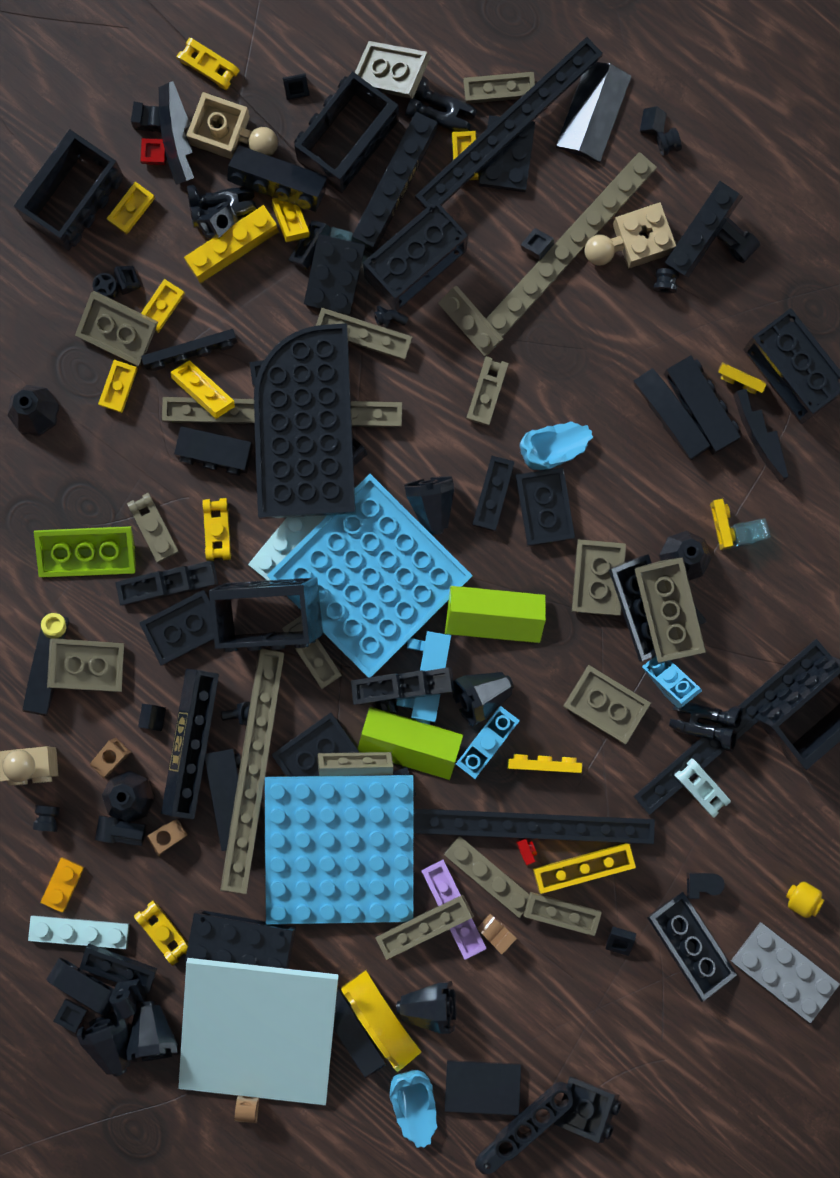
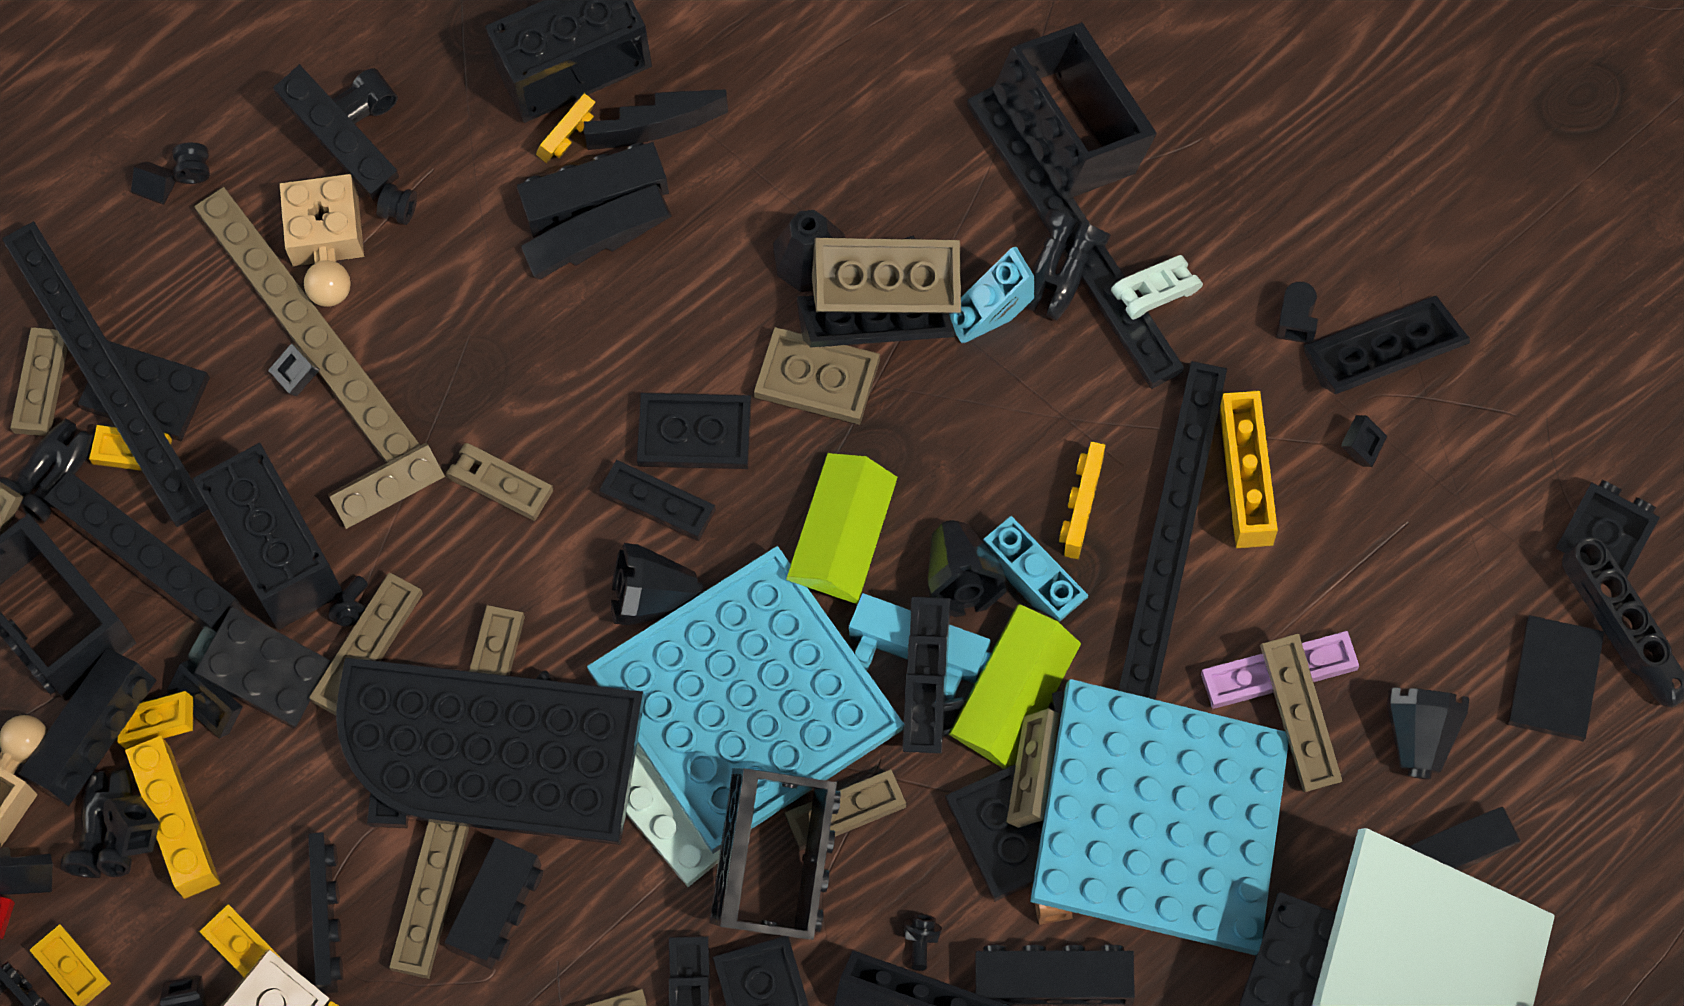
camera: 75 degrees left, 15 degrees down
(202, 389) = (393, 899): yellow plate -> none
(216, 529) = (621, 924): yellow plate -> none
(252, 772) = (1019, 925): dark tan plate -> none
(380, 1021) = (1439, 801): yellow windscreen -> none
(414, 1106) = (1572, 778): medium azure hair -> none
(488, 876) = (1237, 612): dark tan plate -> none
(496, 933) = (1328, 612): medium nougat leg -> none
(527, 851) = (1209, 548): red plate -> none
(554, 445) = (605, 400): medium azure hair -> none
(562, 913) = (1311, 514): dark tan plate -> none
(593, 111) = (115, 260): black slope -> none
(606, 704) = (1008, 398): dark tan plate -> none
(720, 514) = (774, 194): yellow plate -> none
(751, 532) = (794, 160): clear light blue leg -> none
(785, 972) = (1441, 231): light grey plate -> none
(805, 899) = (1341, 182): yellow head -> none

